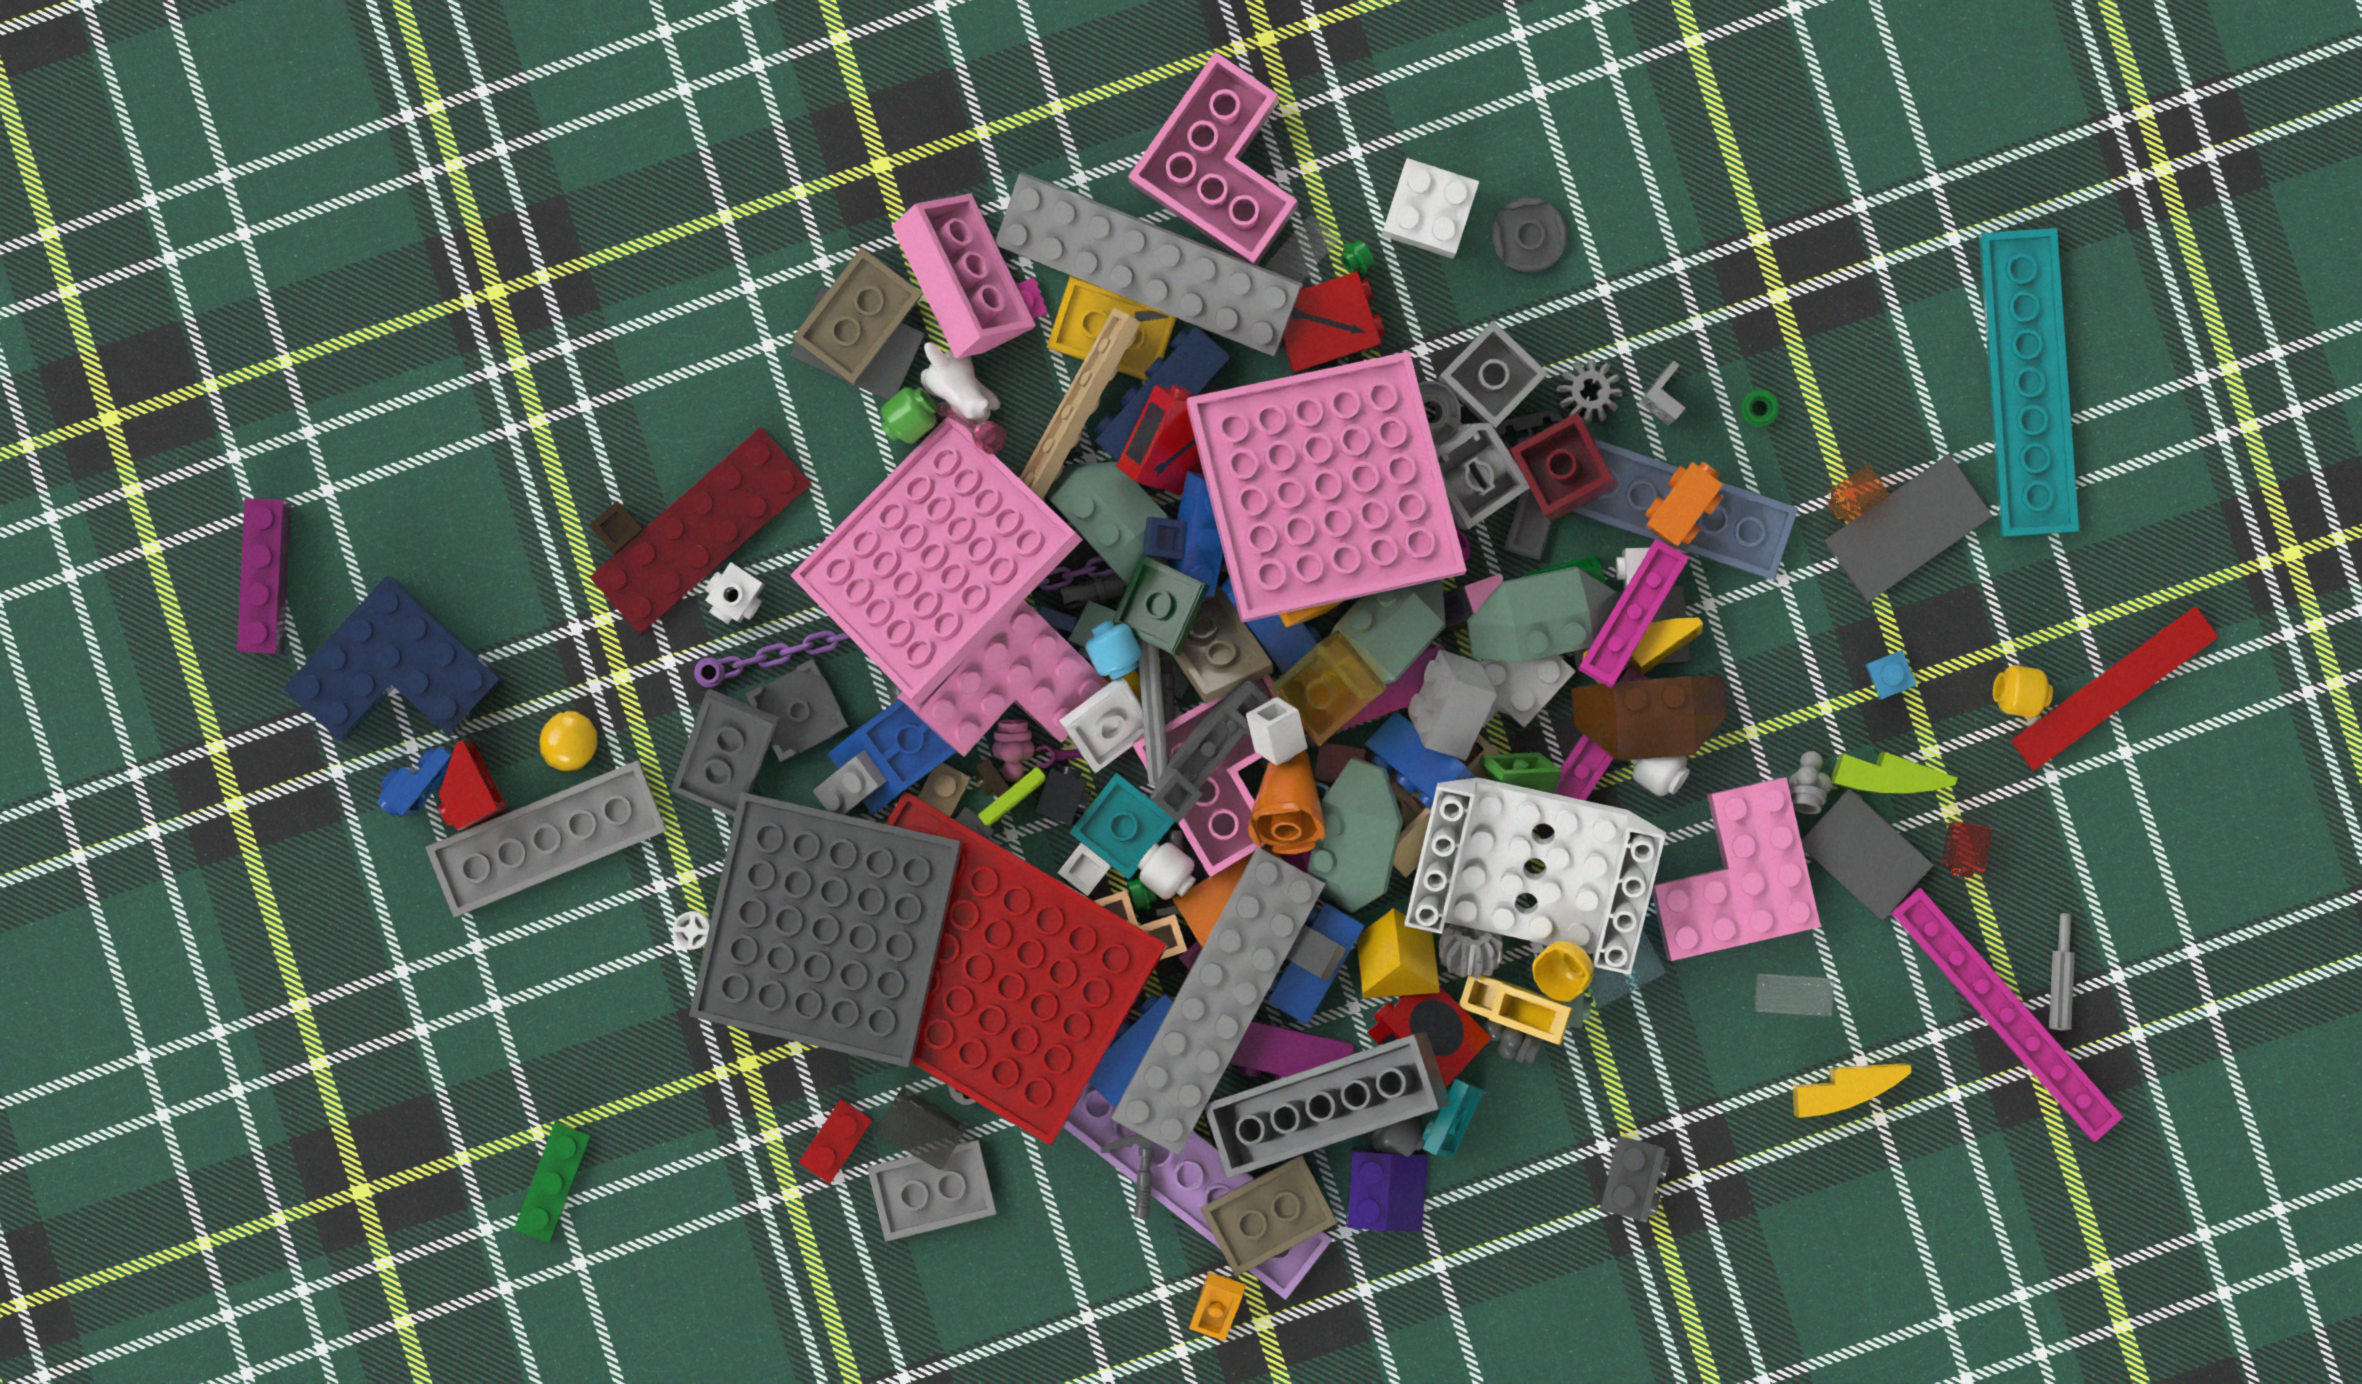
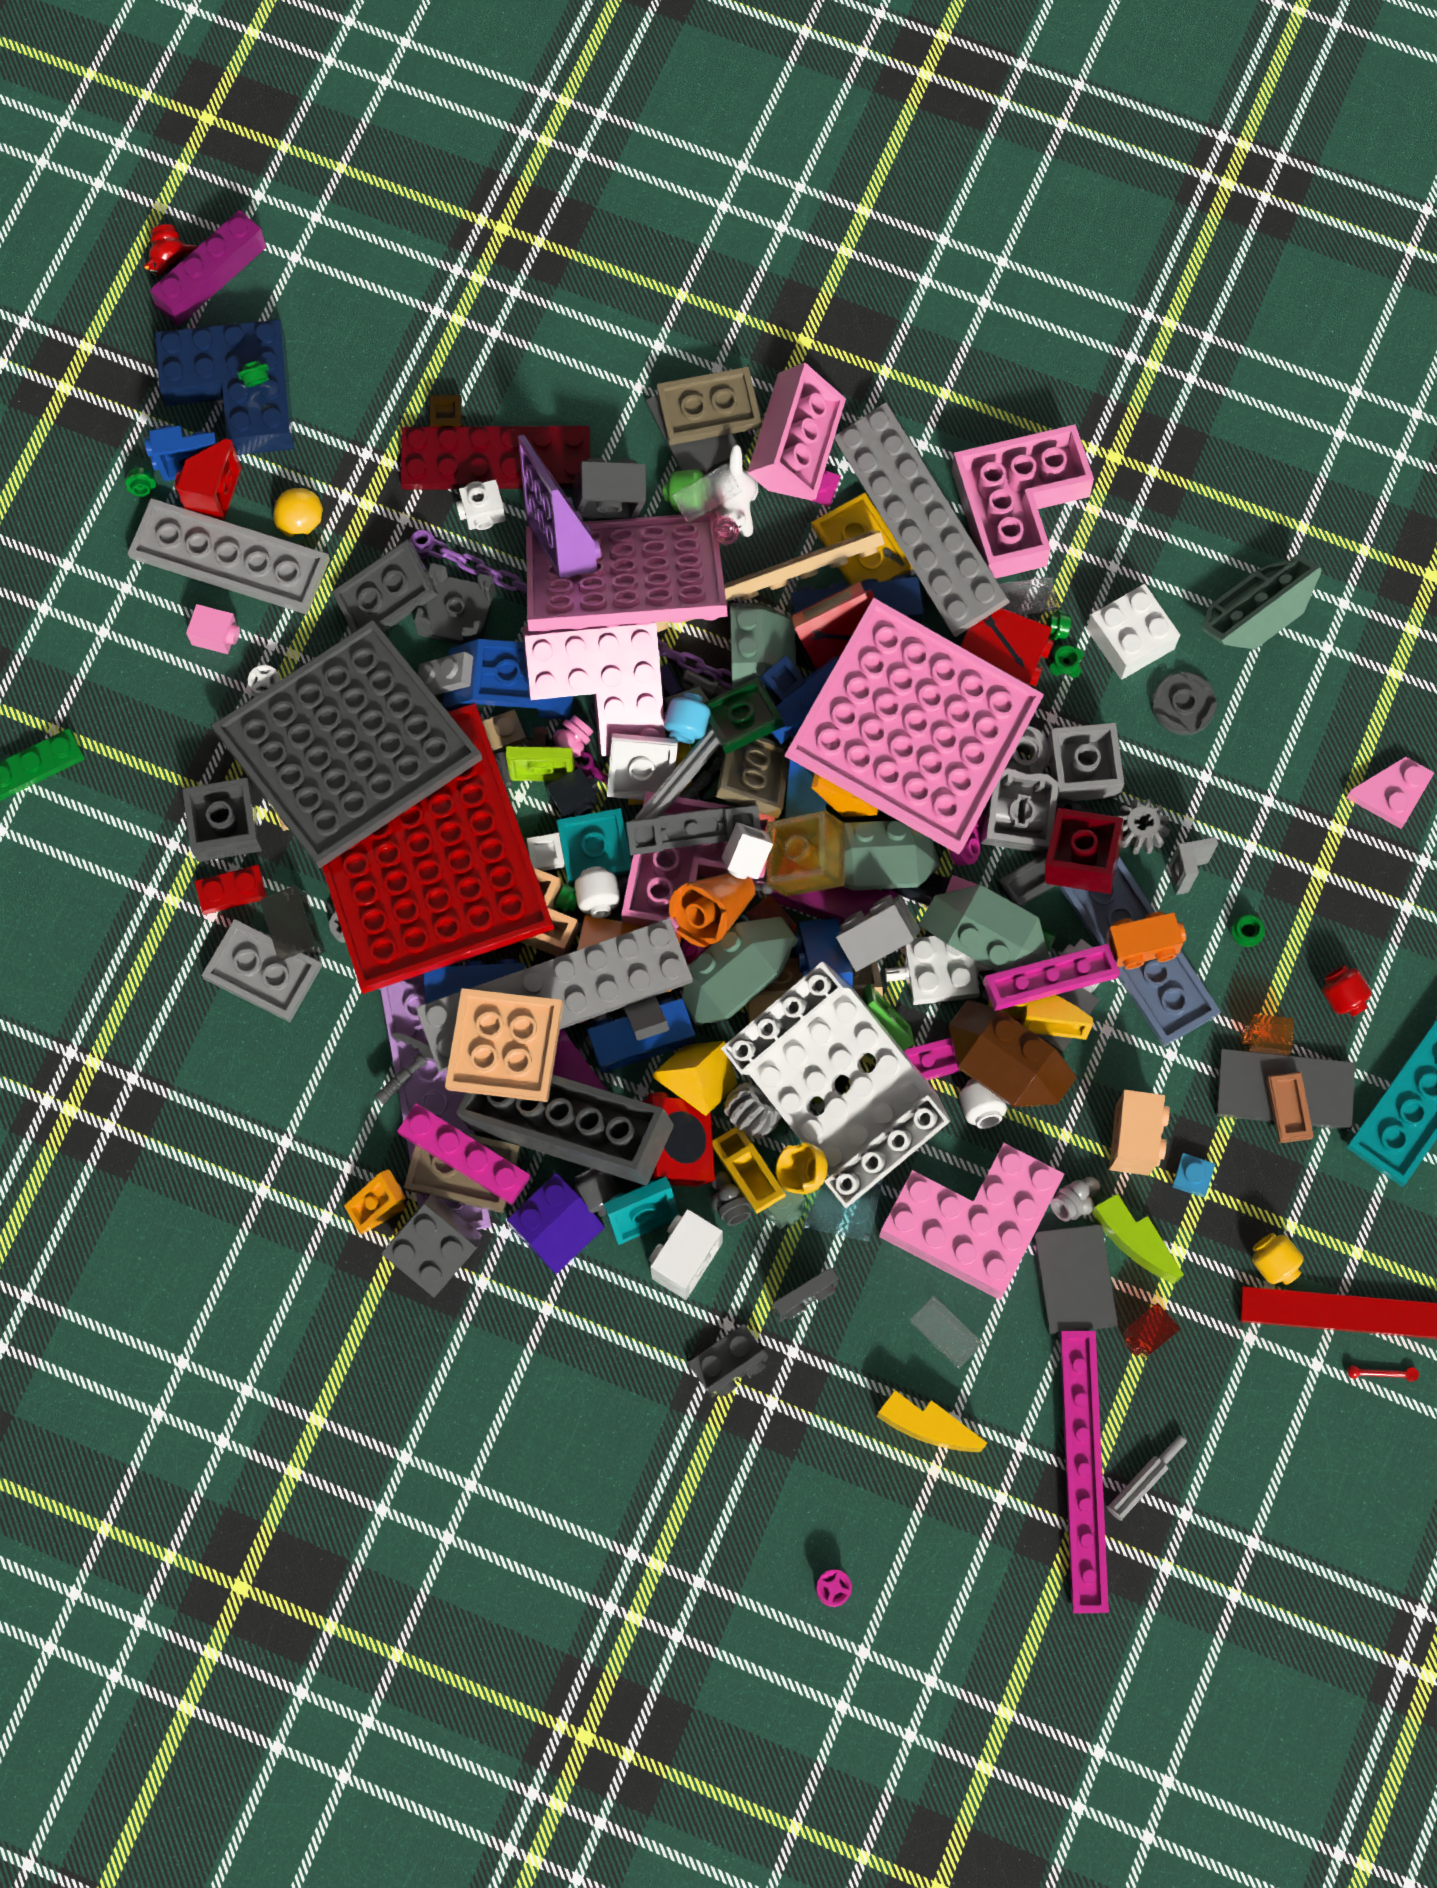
camera: 45 degrees right, 15 degrees down
(204, 591) = (165, 249): none -> red animal
(398, 839) = (140, 482): none -> green plate
(421, 657) = (254, 374): none -> green plate
(599, 920) = (213, 629): none -> bright pink brick
(774, 1090) = (222, 819): none -> dark grey brick
(829, 559) = (554, 519): none -> medium lavender slope
(843, 485) = (609, 489): none -> dark grey brick
(936, 410) = (706, 493): none -> clear tile
(1223, 1090) = (504, 1045): none -> light nougat plate
(1262, 1205) = (463, 1154): none -> dark pink plate
(1303, 1303) = (432, 1245): none -> dark grey brick
(1381, 282) = (1070, 653): none -> green plate
(1522, 84) = (1262, 603): none -> sand green wedge
(1523, 1124) = (685, 1254): none -> white brick
(1658, 1054) = (796, 1301): none -> dark grey plate
(1783, 161) = (1393, 791): none -> bright pink wing
(1818, 684) = (1138, 1132): none -> light nougat brick
(1890, 1295) = (836, 1583): none -> dark pink wheel
(1891, 394) = (1346, 991): none -> red head
(1926, 545) = (1289, 1107): none -> nougat tile
(2210, 693) = (1410, 1374): none -> red hinge

